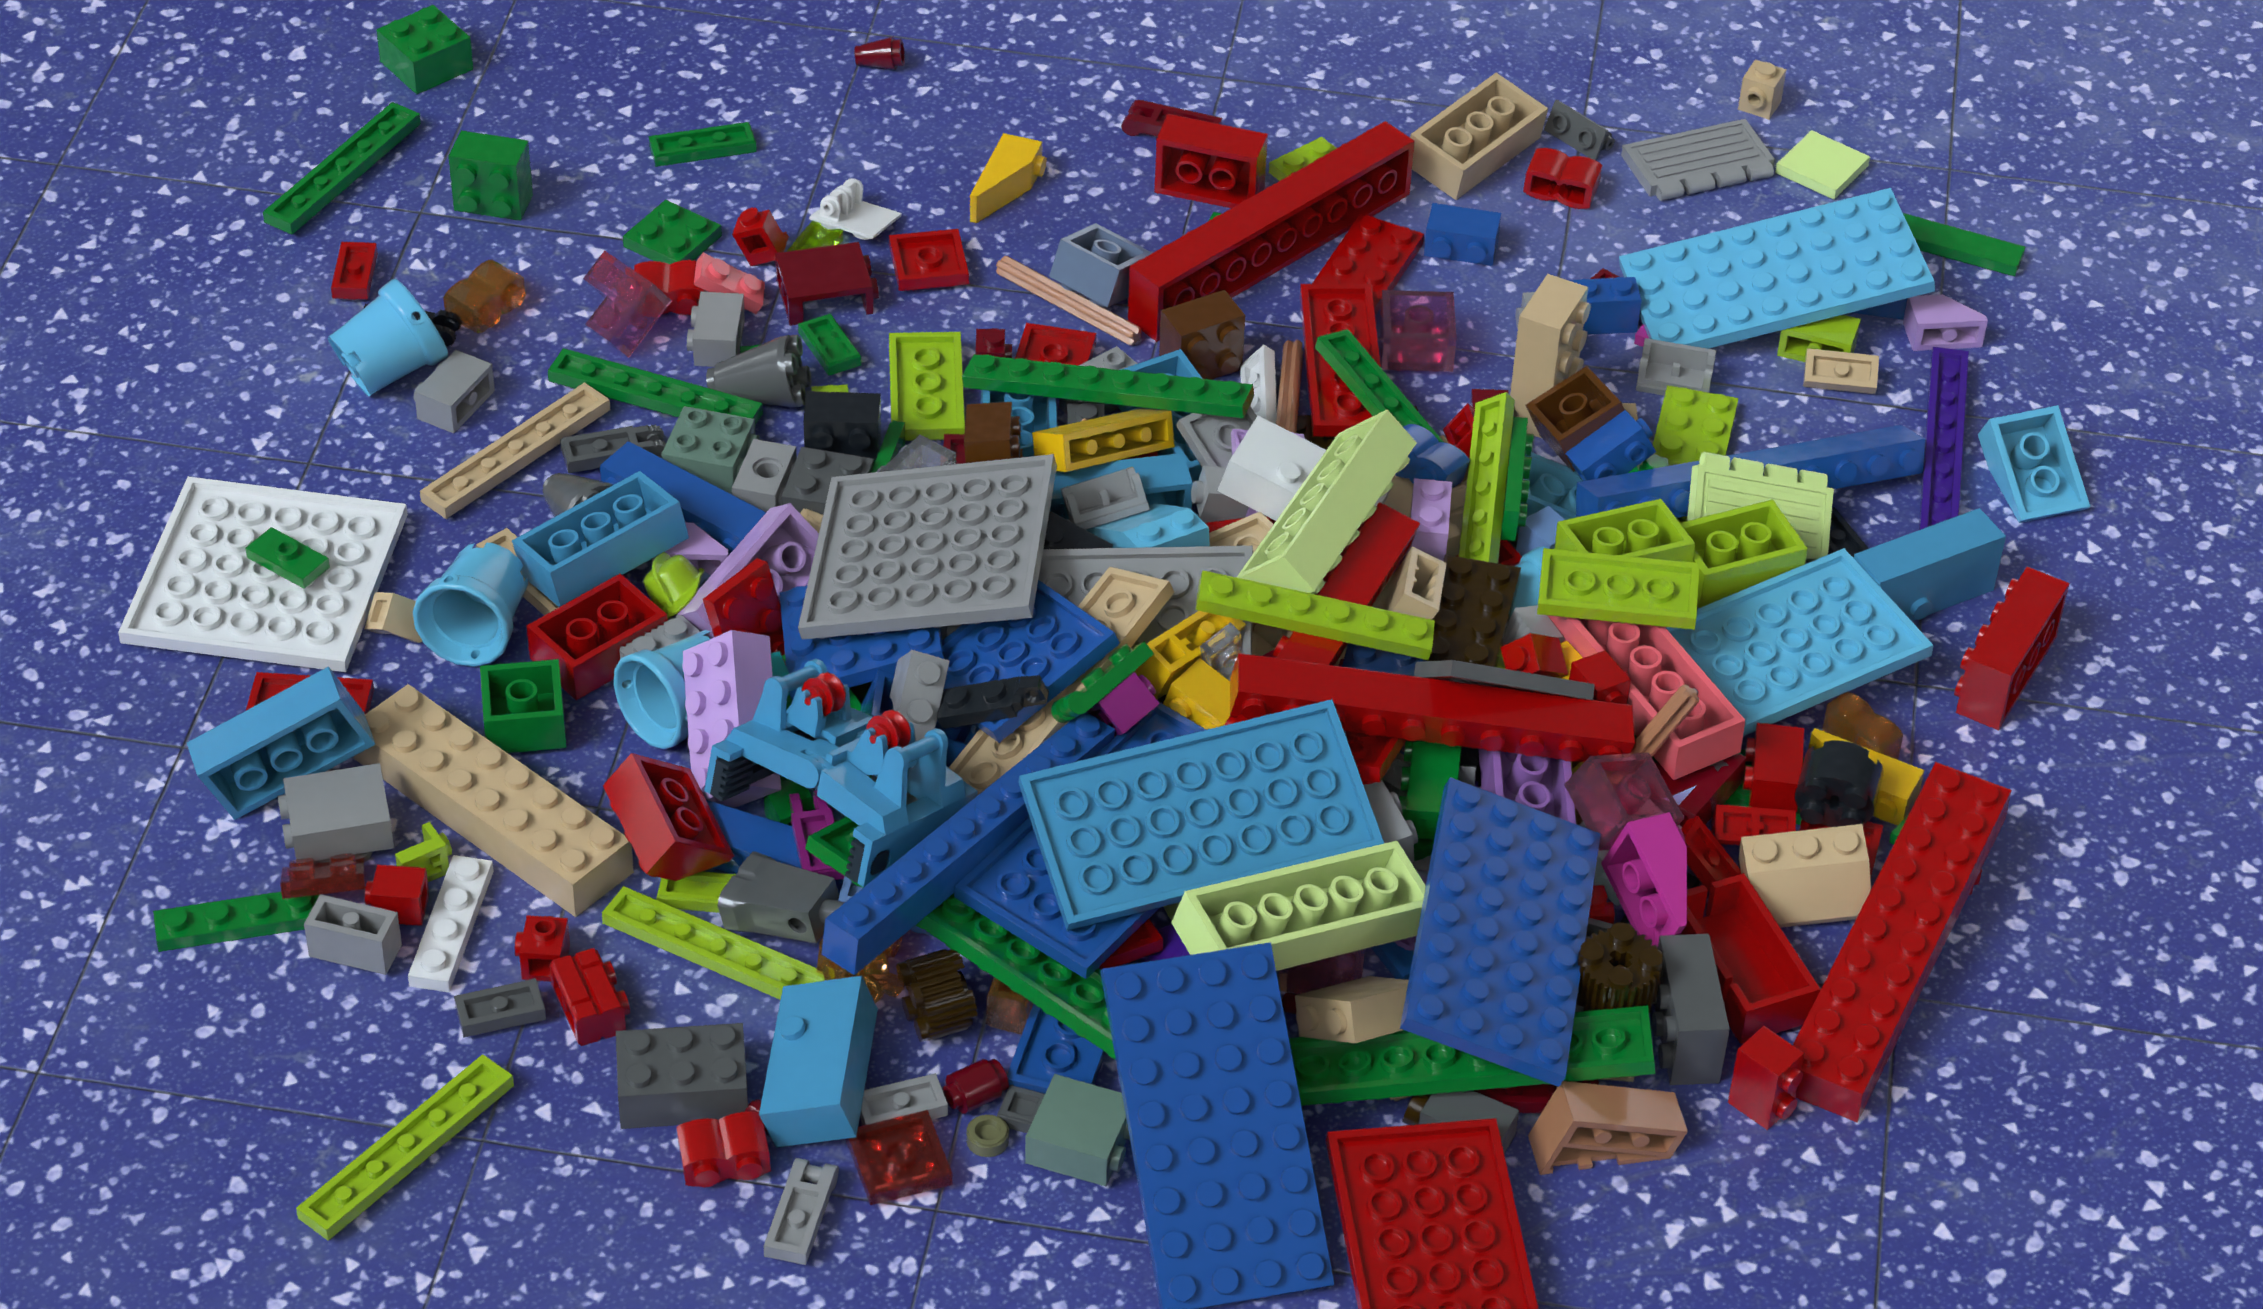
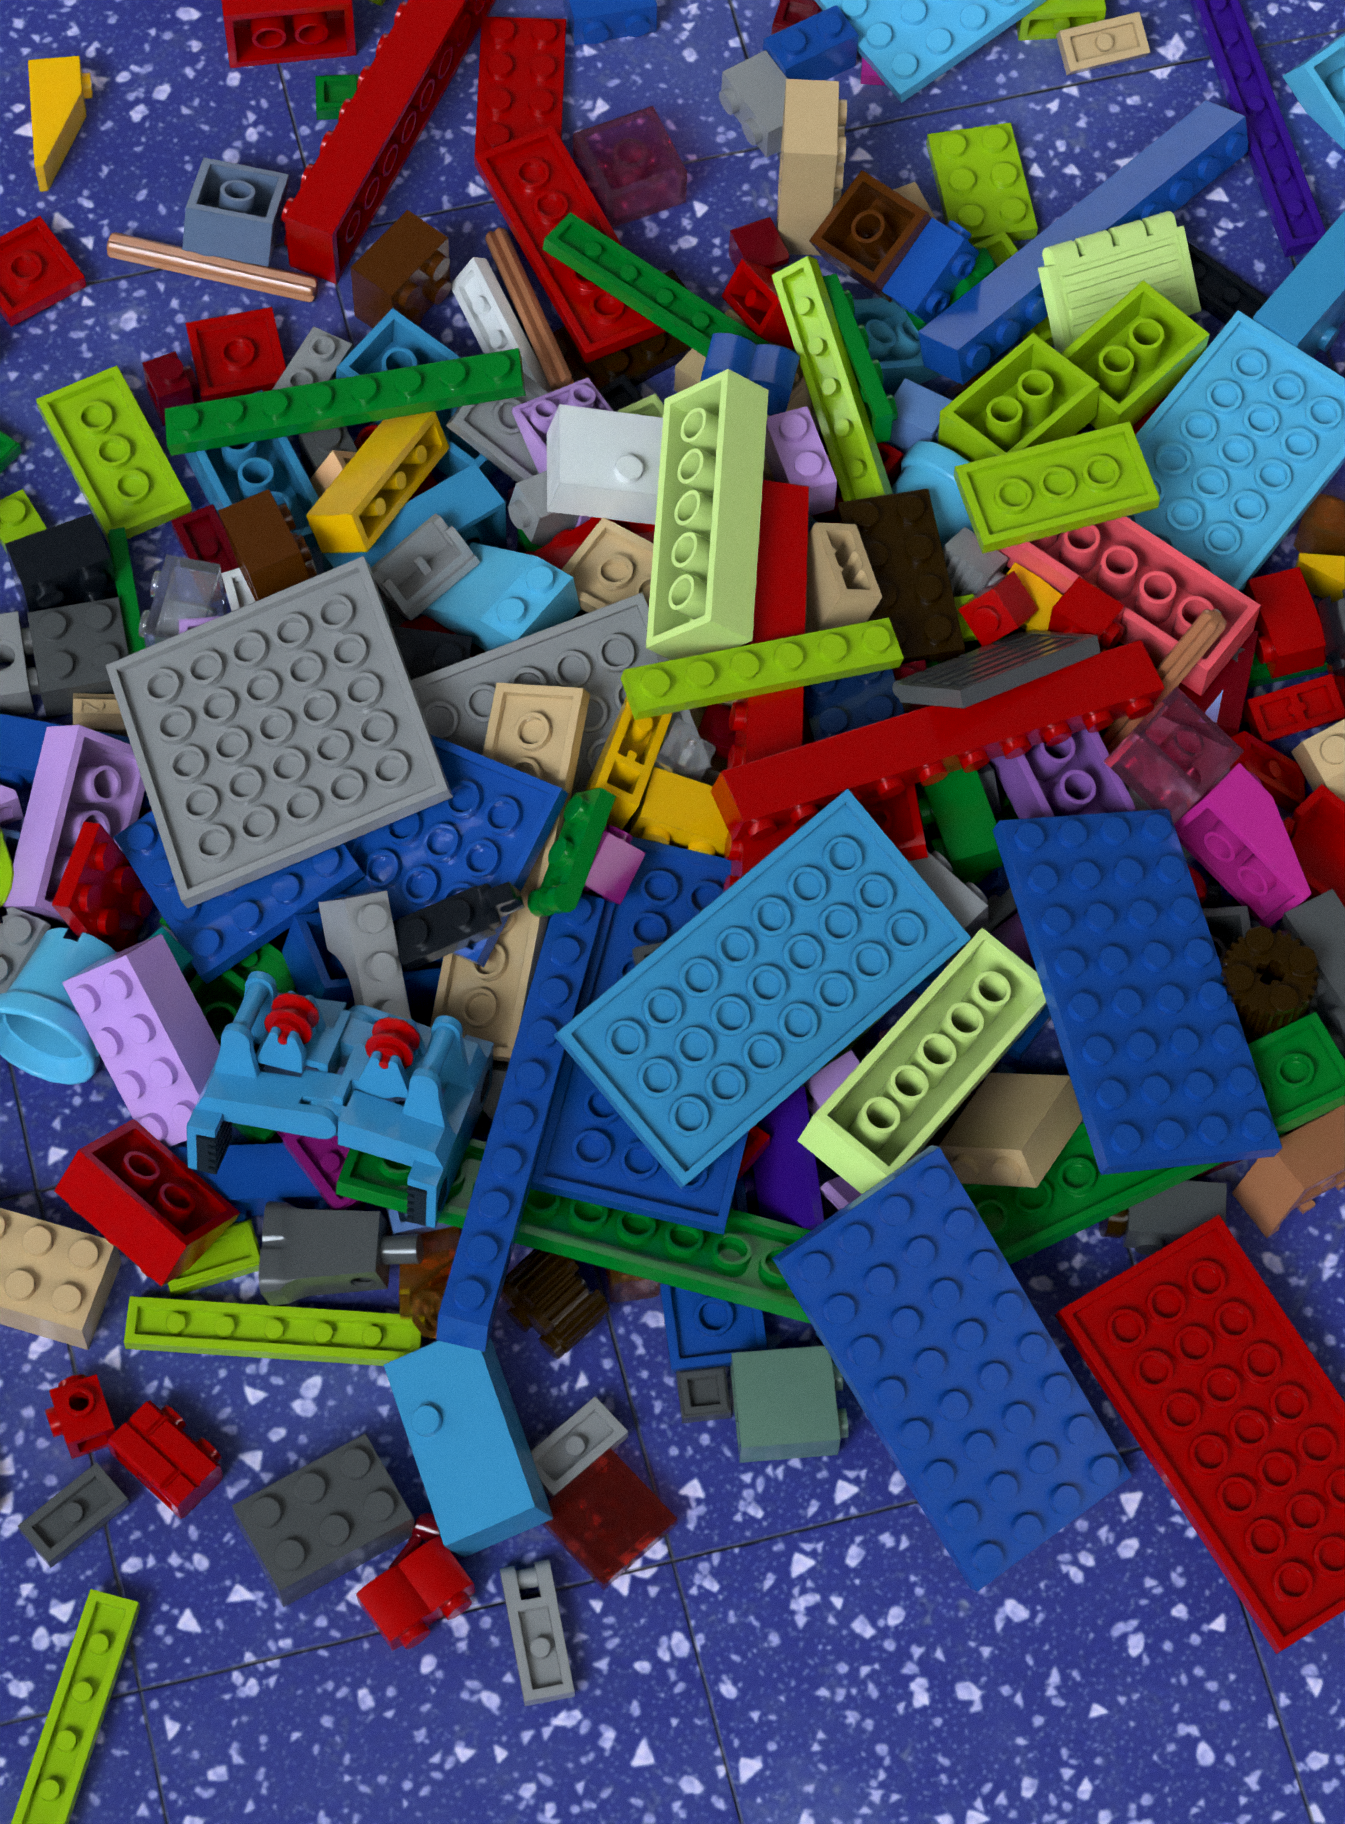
camera: 25 degrees left, 20 degrees up
(975, 1085) = (643, 1391): dark red brick -> none
(987, 1135) = (682, 1444): olive tile -> none
(1674, 365) = (927, 108): light grey hinge -> none

